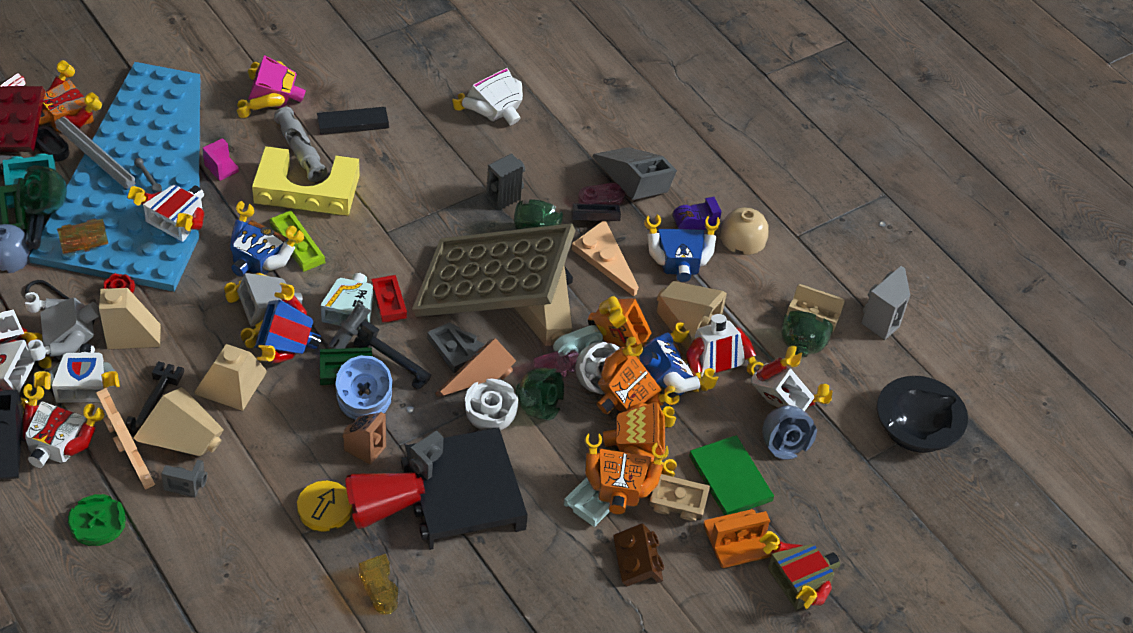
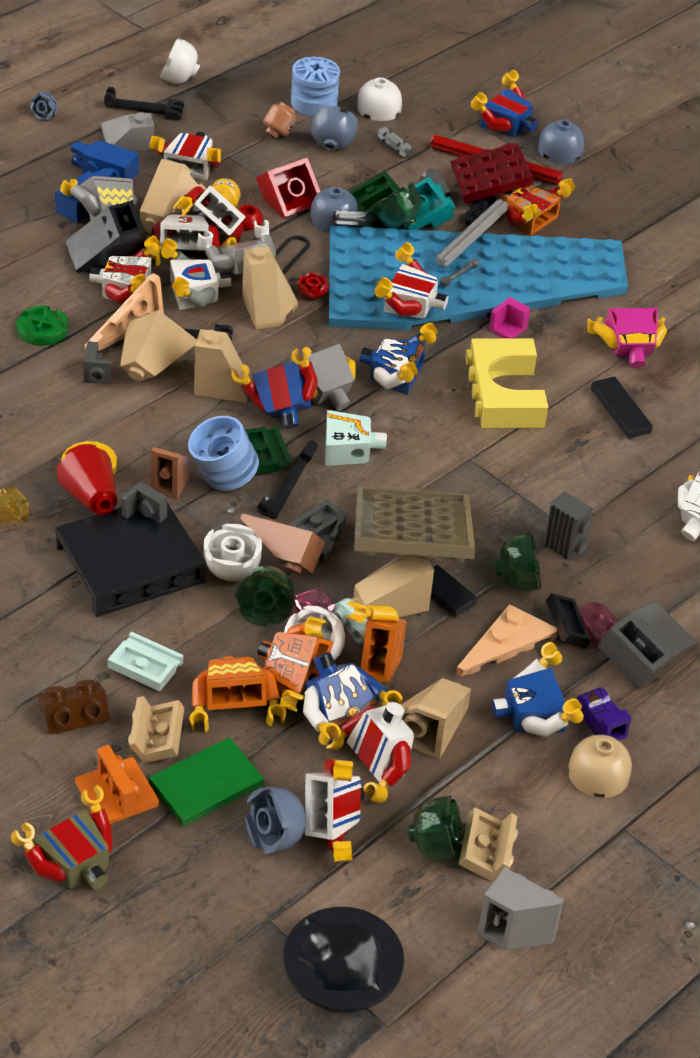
camera: 80 degrees right, 5 degrees down
(82, 236) = (356, 243): clear orange hips -> none
(300, 144) = (572, 364): light grey piece -> none
(305, 253) = (425, 394): lime tile -> none
(349, 326) = (300, 438): dark grey pin -> none
(389, 298) = (367, 467): red plate -> none
(622, 476) = (160, 660): orange torso -> none

